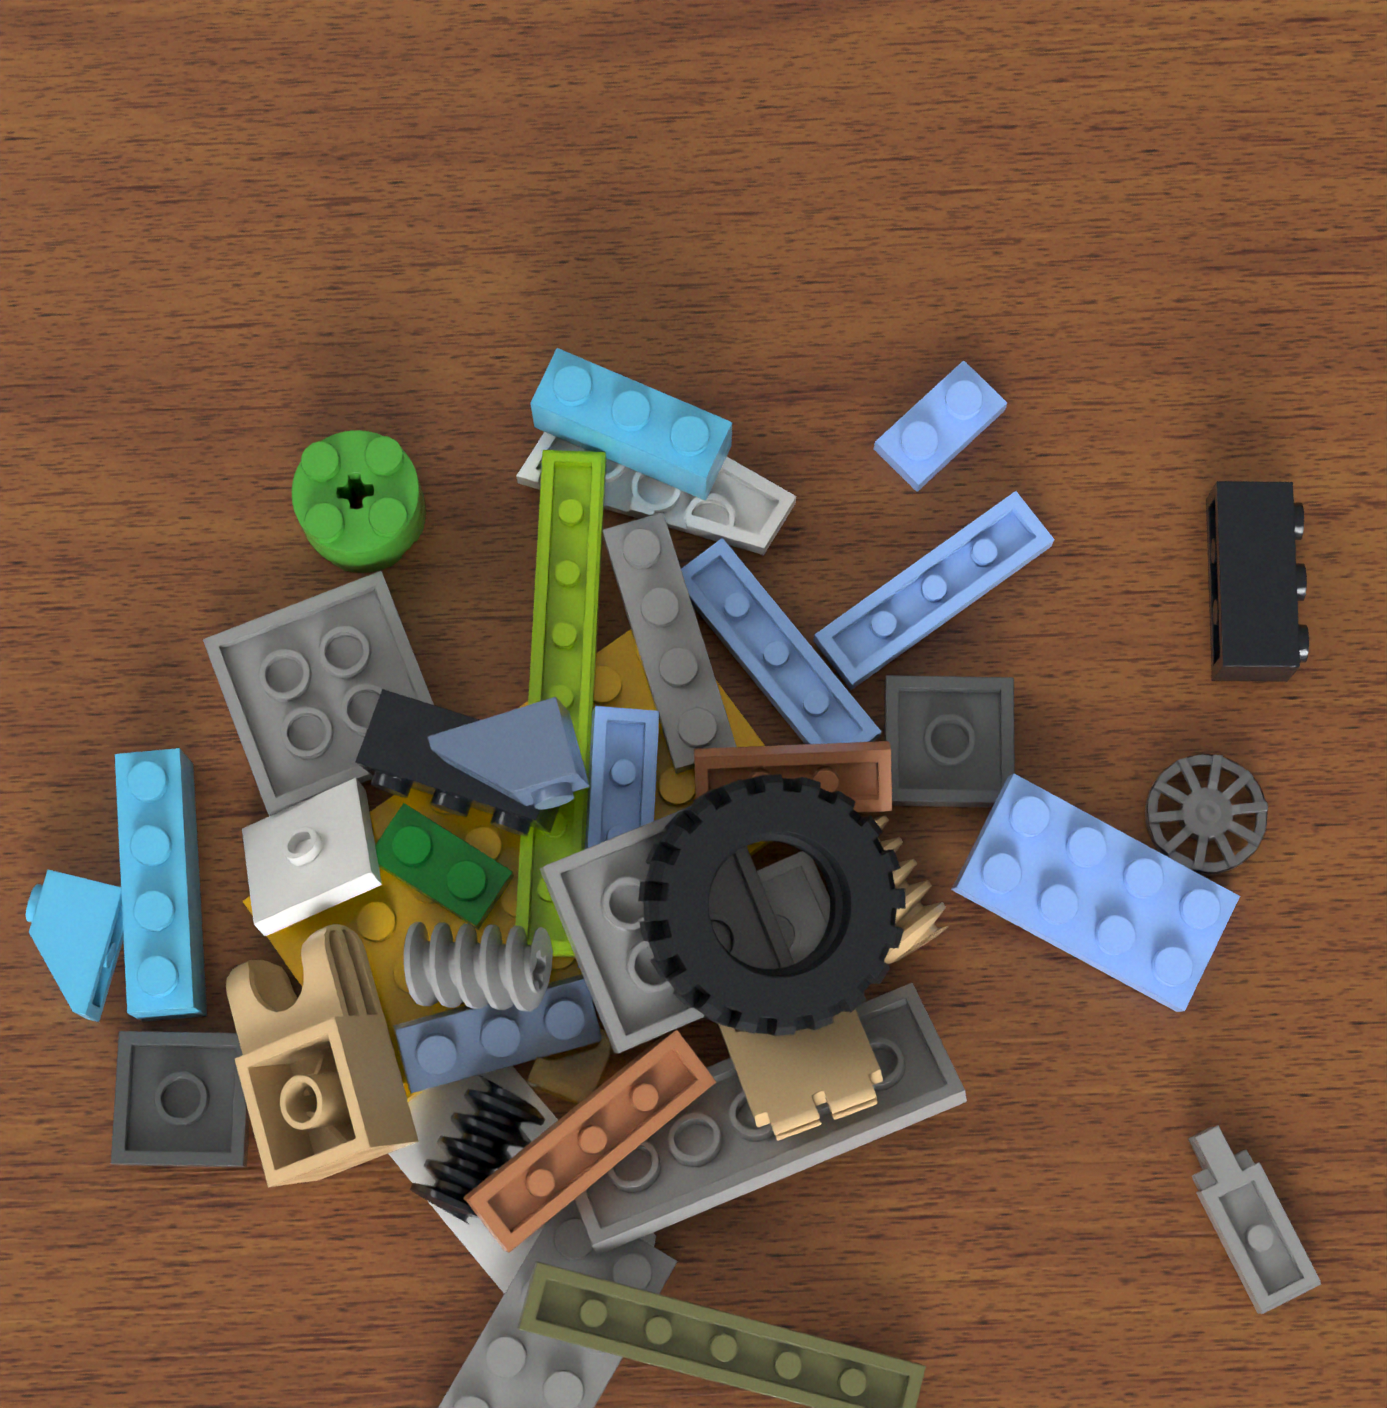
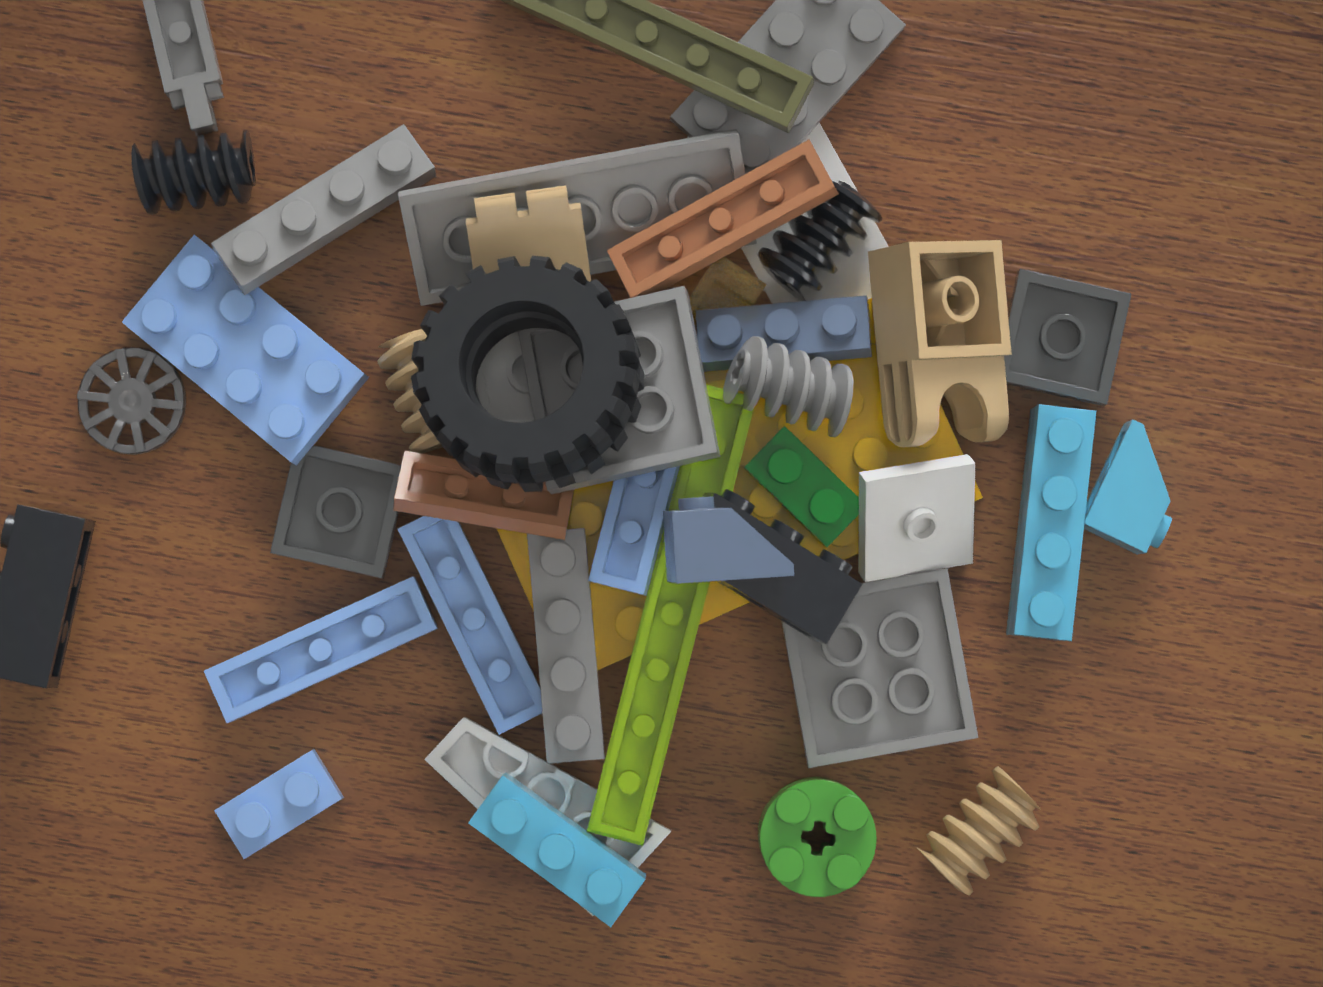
camera: 170 degrees left, 10 degrees up
(182, 539) = (981, 831): none -> tan piece
(1045, 1067) = (323, 209): none -> light grey plate
(1202, 1075) = (194, 173): none -> black piece

